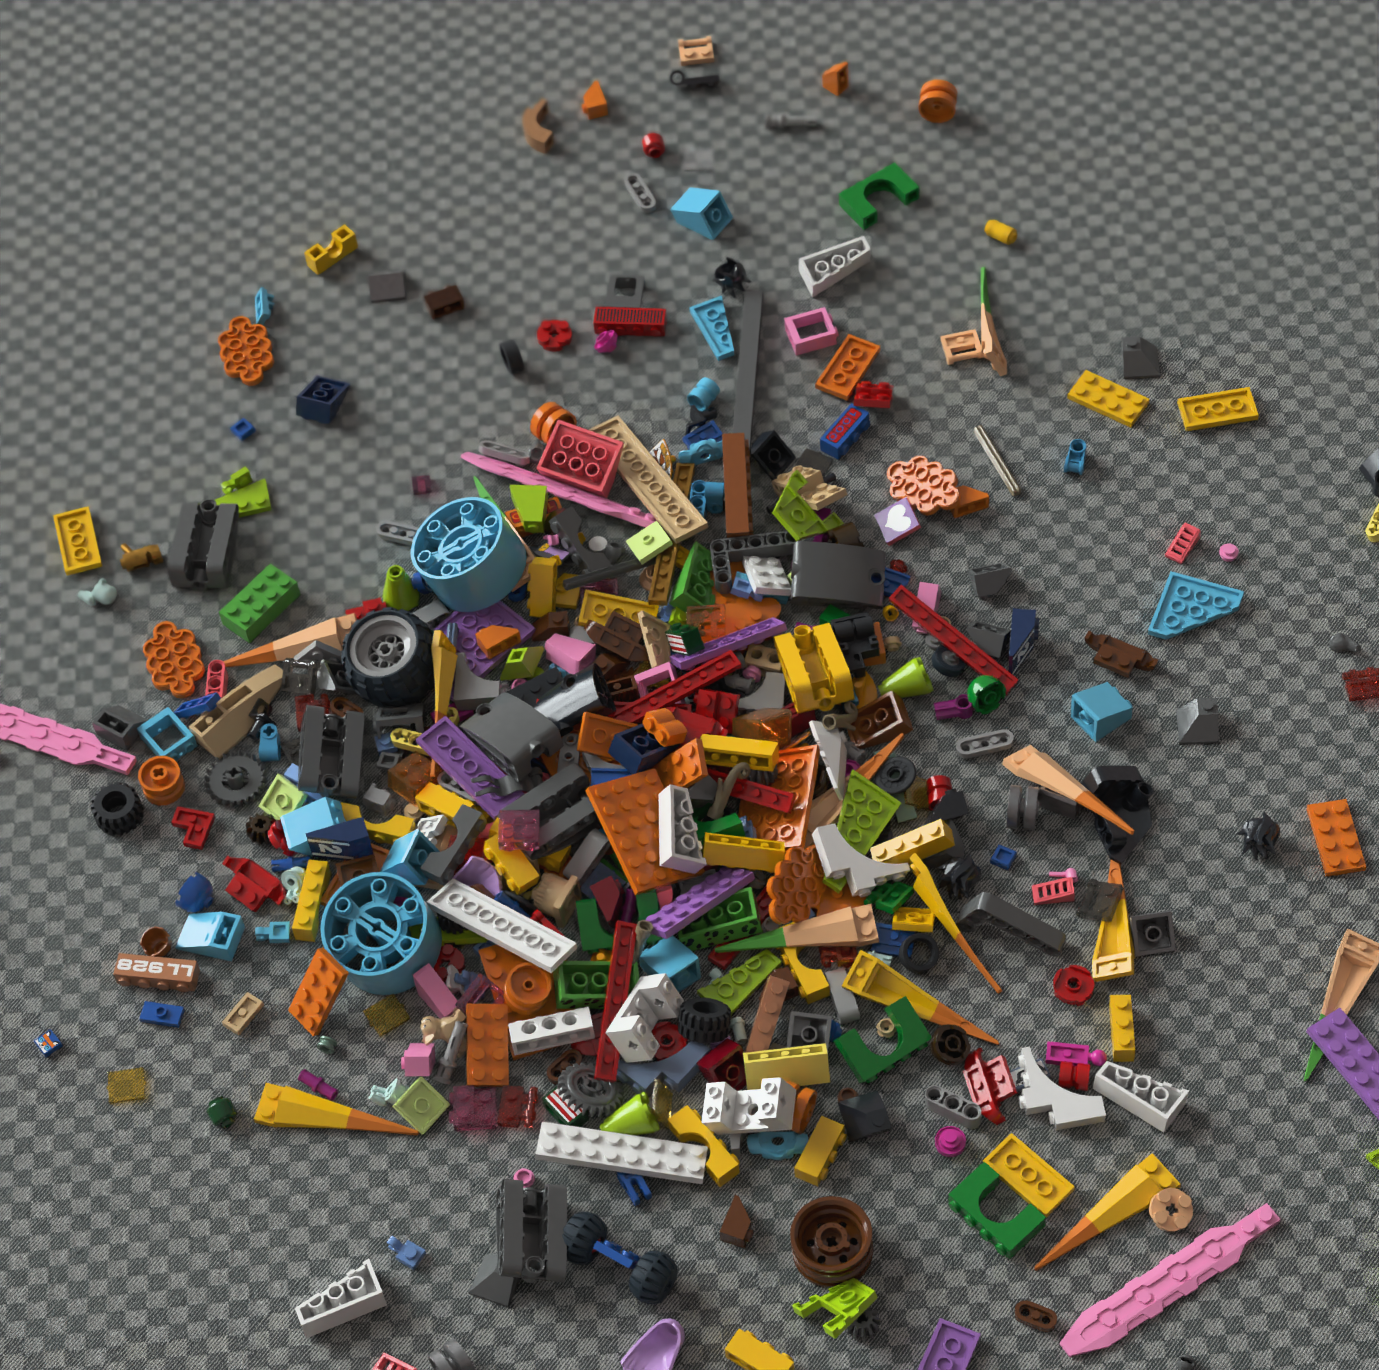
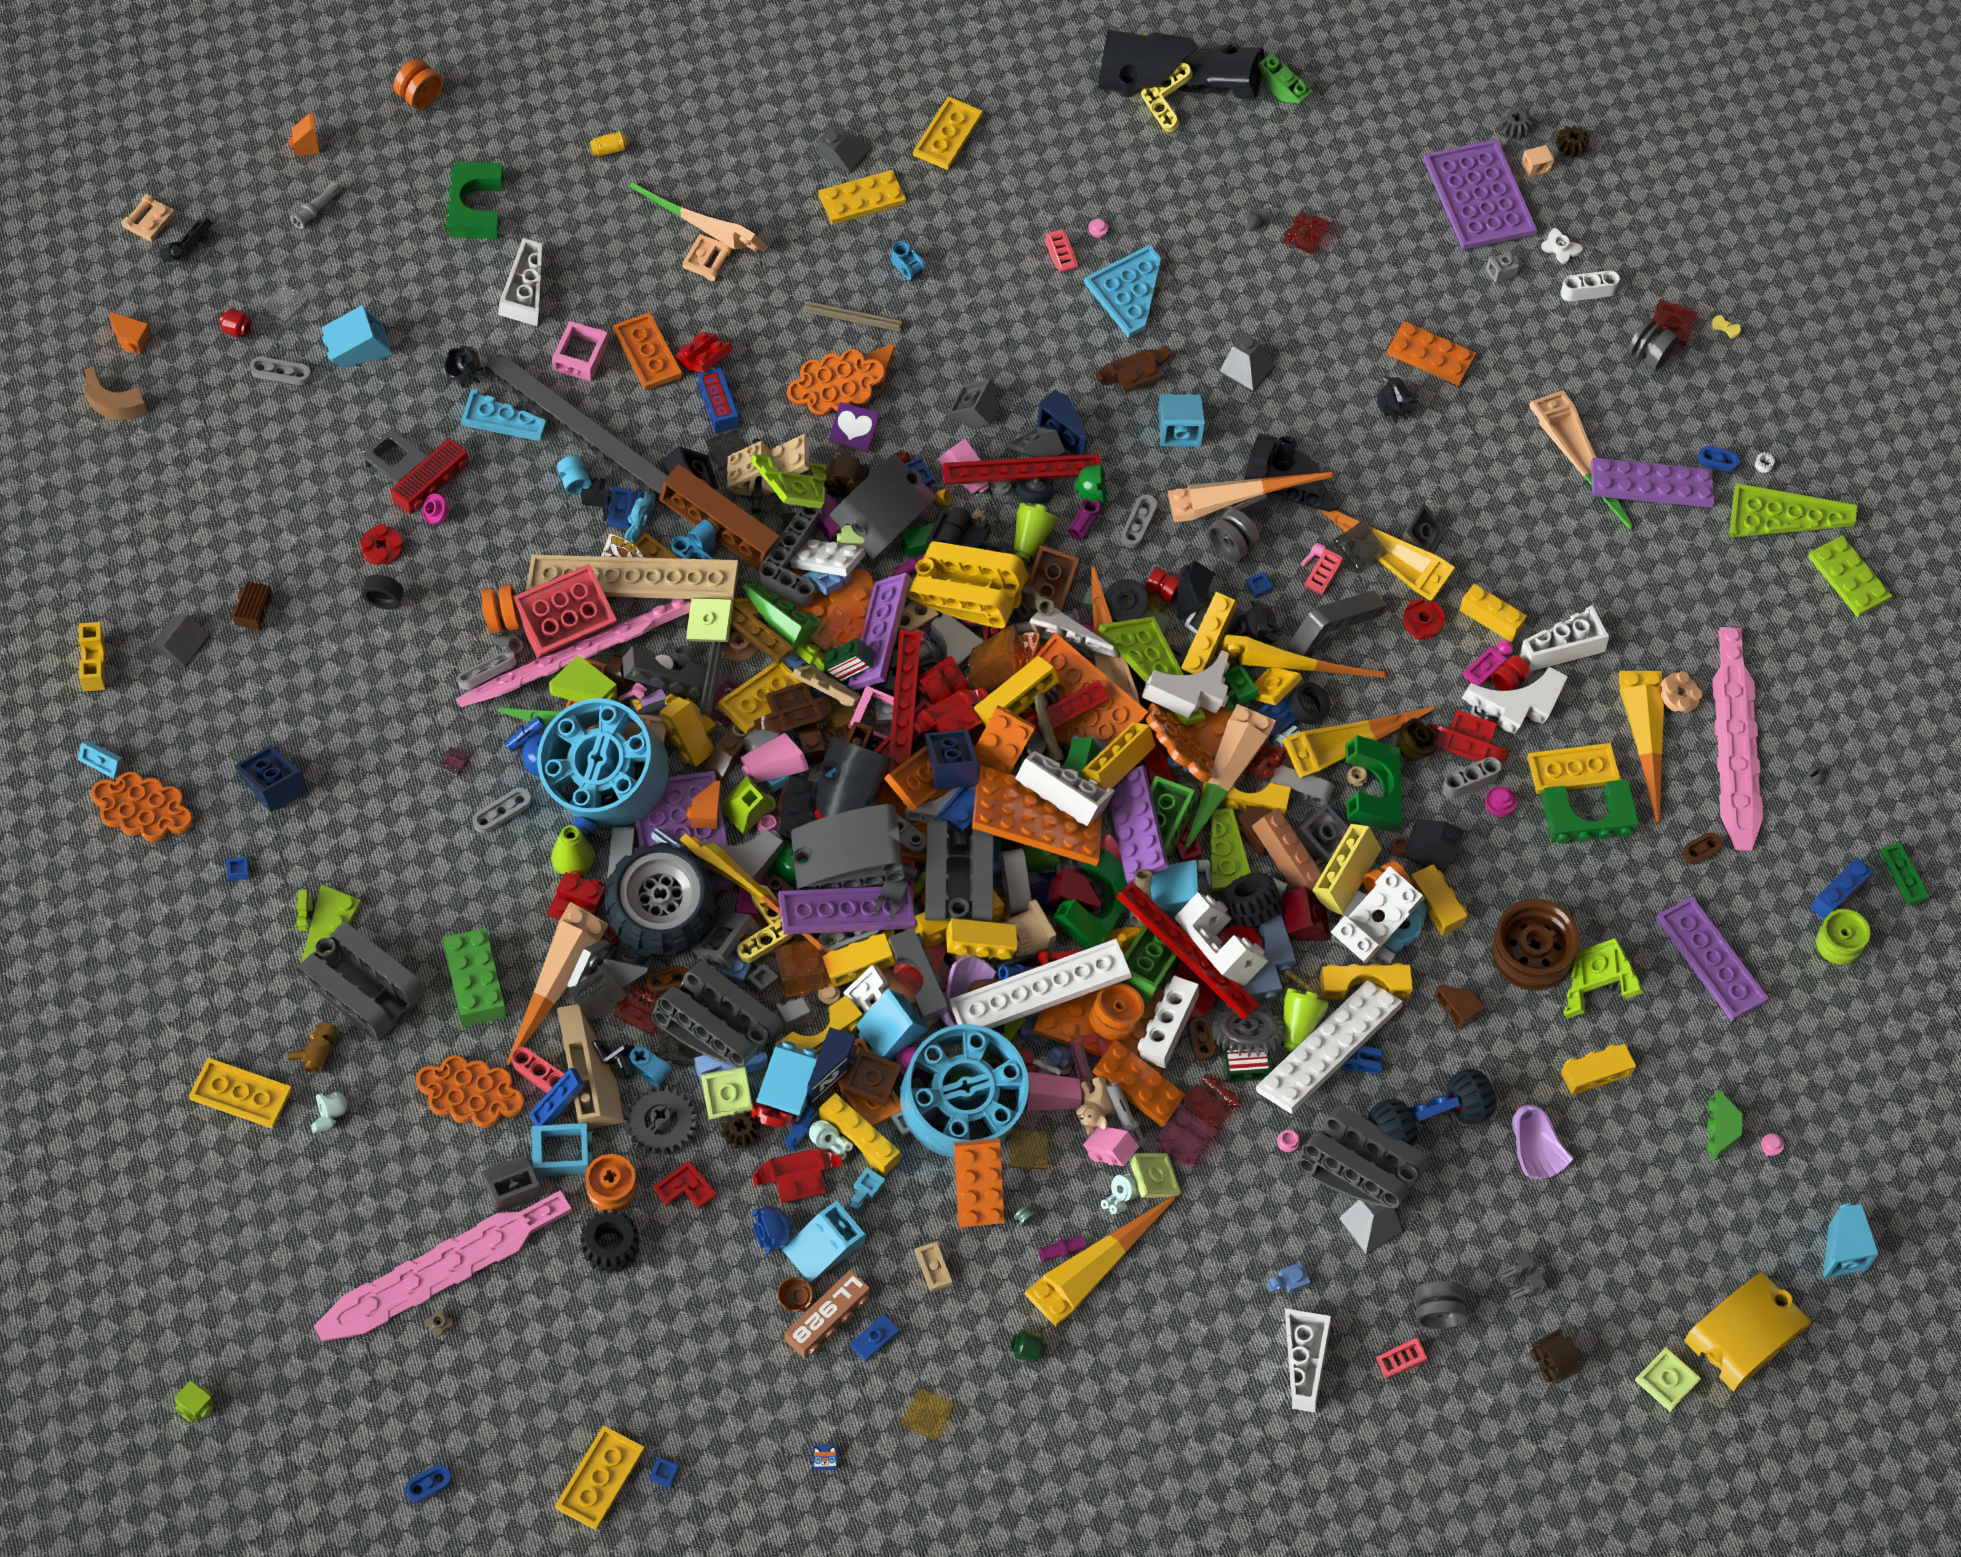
camera: 65 degrees left, 5 degrees up
(519, 829) = (966, 906): clear pink plate -> none
(664, 727) = (952, 727): orange brick -> none

